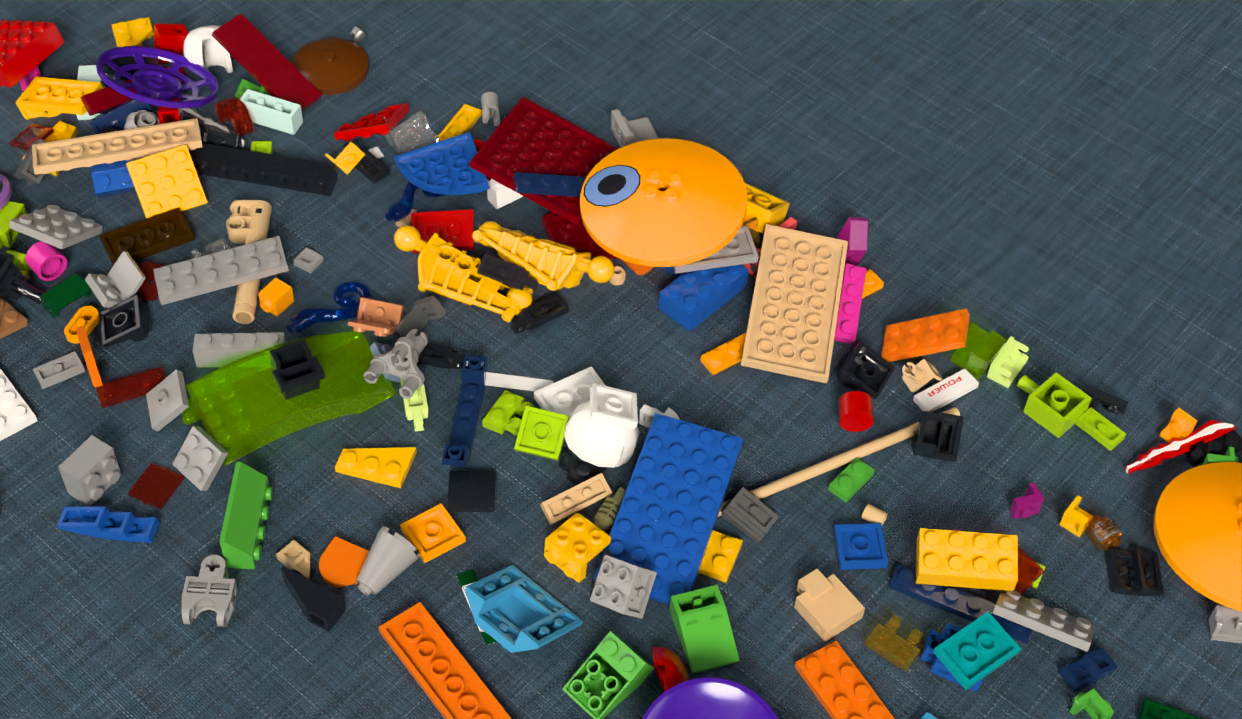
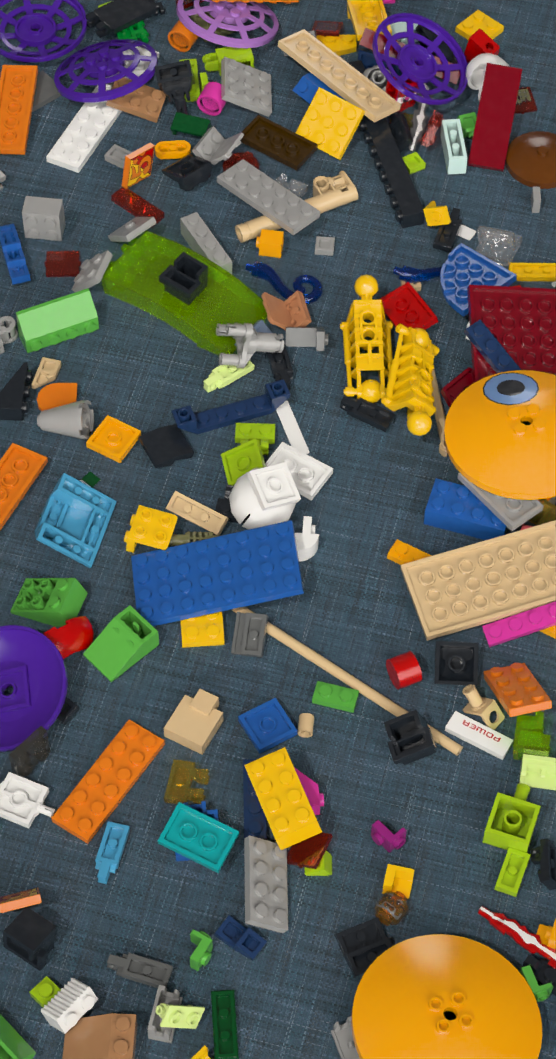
camera: 65 degrees right, 5 degrees up
(372, 124) = (494, 216): red plate -> none
(378, 88) = (535, 199): none -> light grey tile
(378, 465) = (158, 380): yellow wing -> none
(505, 273) = (375, 365): black hinge -> none
(623, 587) = (126, 577): light grey bracket -> none

